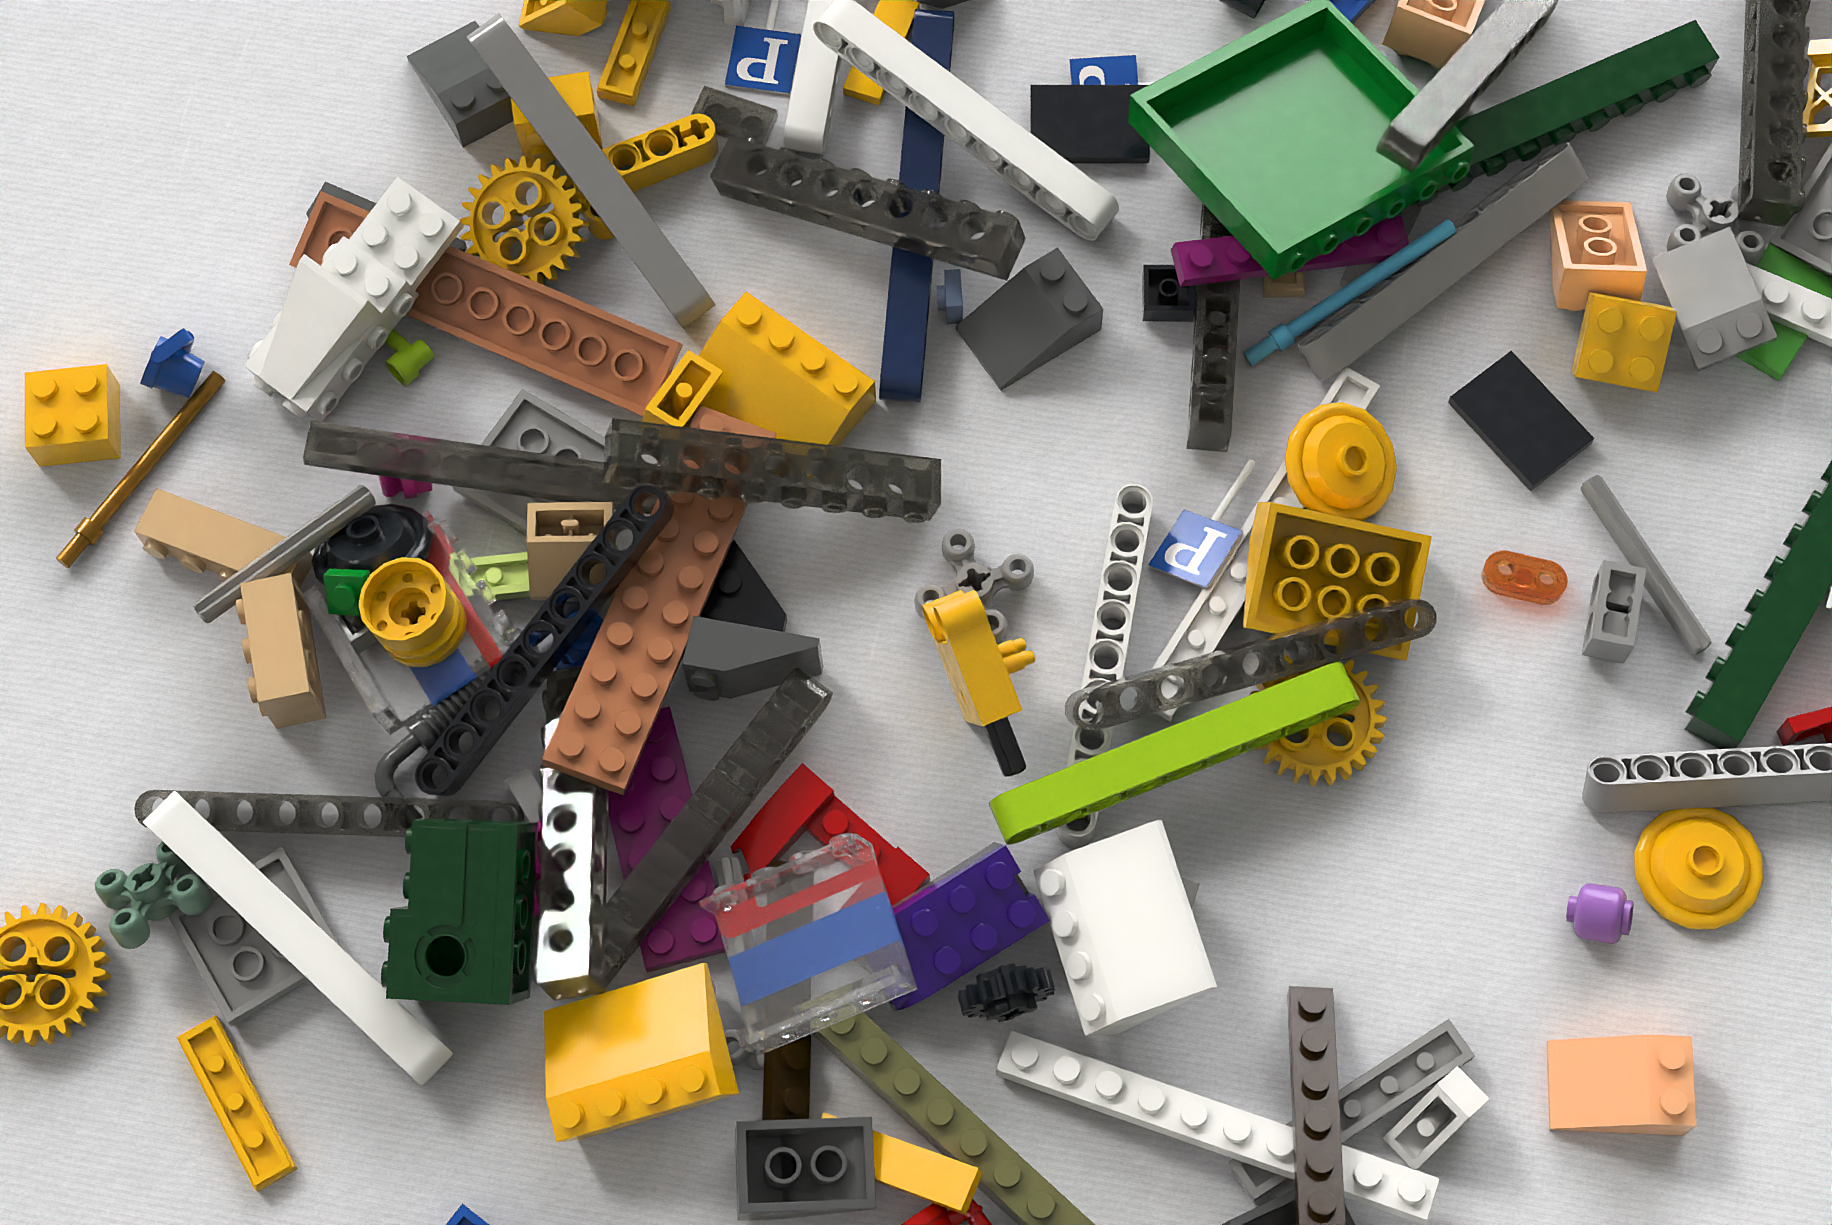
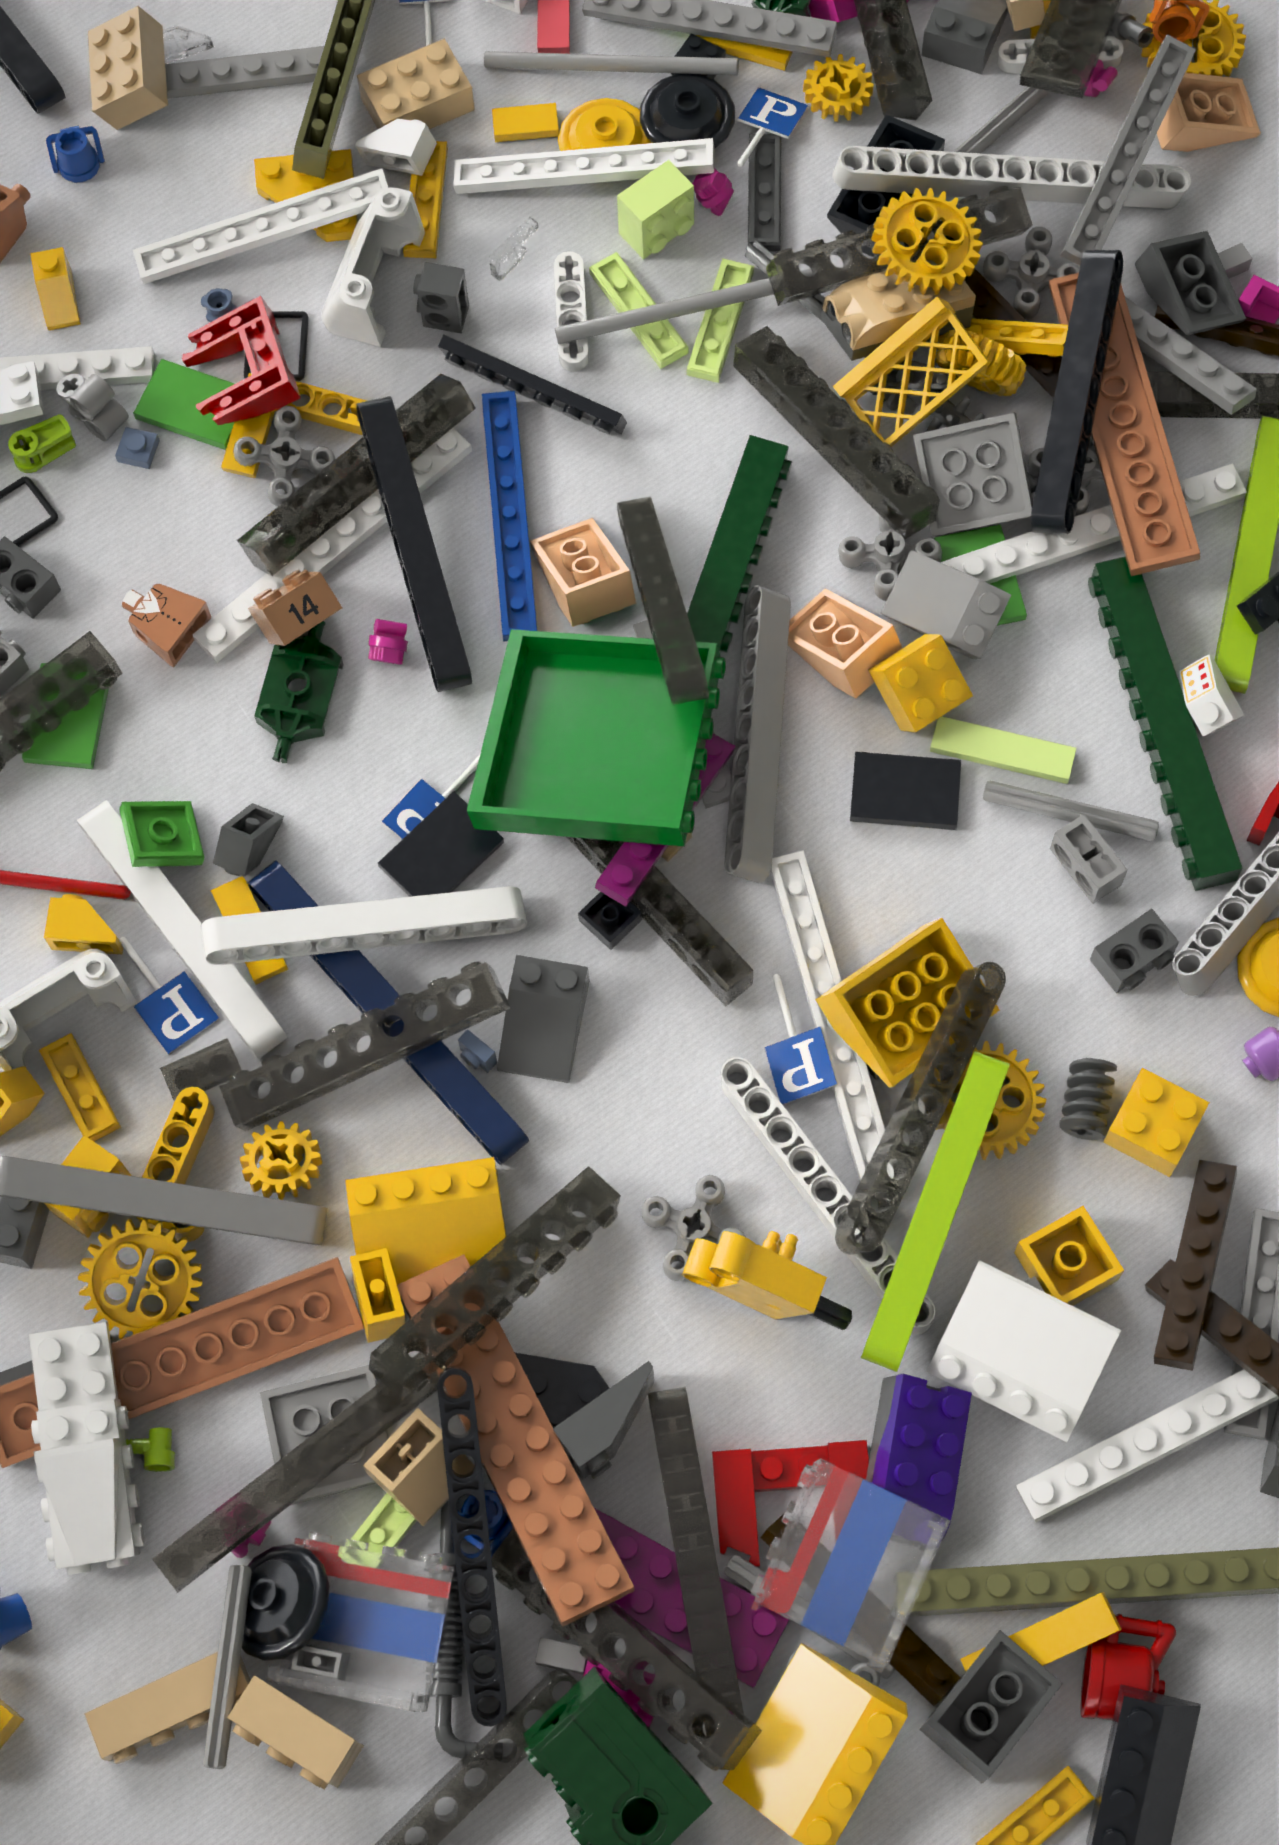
camera: 45 degrees left, 0 degrees up
(90, 529) = (61, 1789): pearl gold bar -> none
(344, 590) = (303, 1646): green plate -> none
(412, 612) = (342, 1617): yellow wheel -> none
(737, 232) = (278, 1174): none -> yellow gear
(1006, 992) = (994, 1465): black gear -> none
(1244, 902) = (1070, 1258): none -> yellow brick
(1283, 335) = (709, 875): medium azure bar -> none
(1340, 461) = (833, 923): yellow piece -> none
(1344, 1008) = (1195, 1265): none -> dark brown plate
(1400, 794) = (1085, 1097): none -> dark grey piece
(1439, 870) = (1156, 1122): none -> yellow brick
(1525, 577) = (1012, 887): clear orange plate -> none
(1573, 712) = (1129, 946): none -> dark grey brick
(1641, 464) = (1003, 749): none -> yellowish green tile

